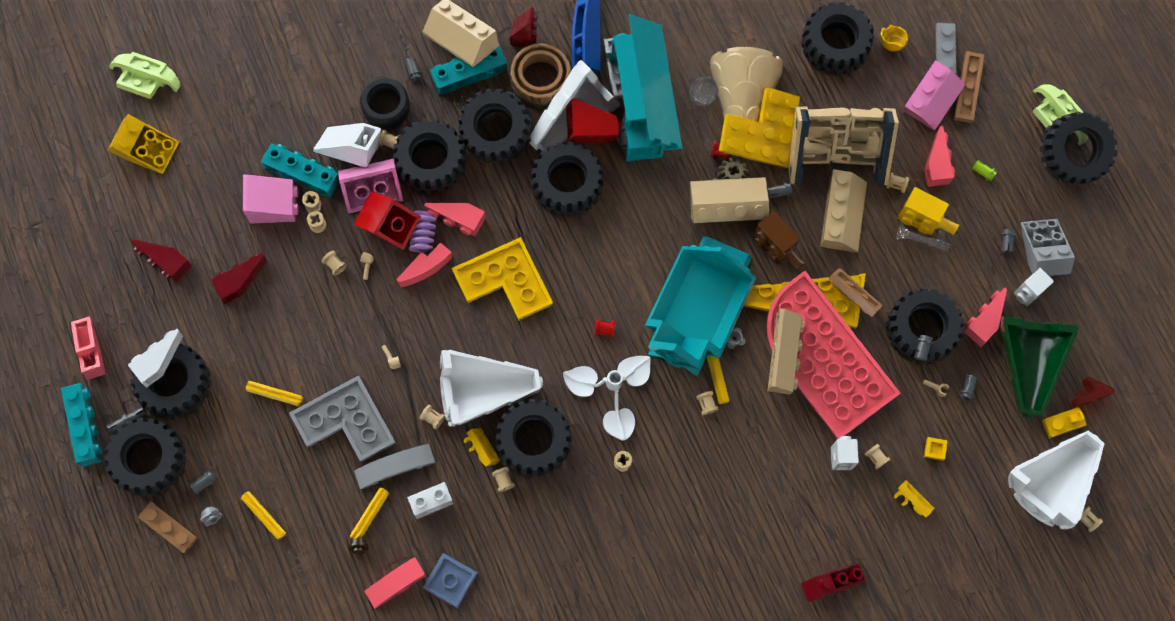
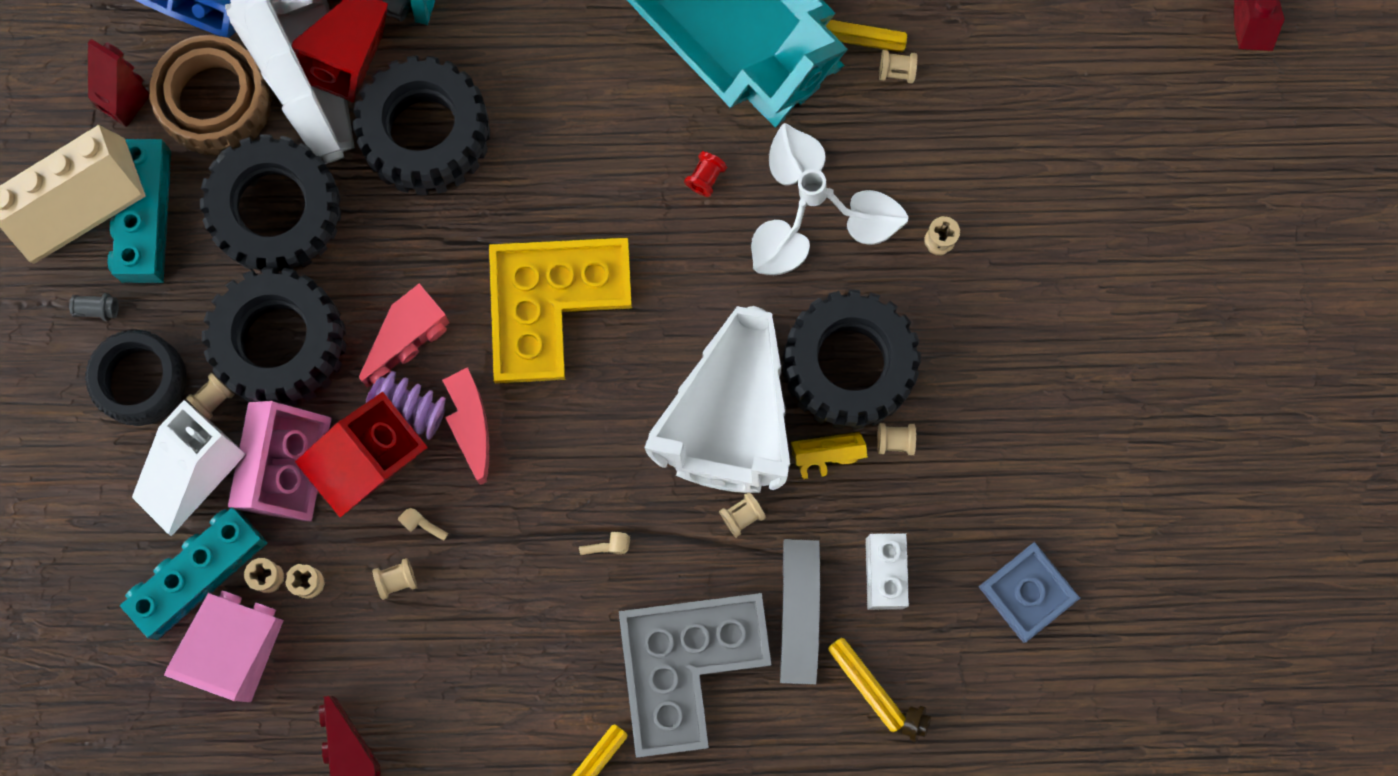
camera: 70 degrees left, 5 degrees up
(395, 582) = (1002, 683): coral slope -> none

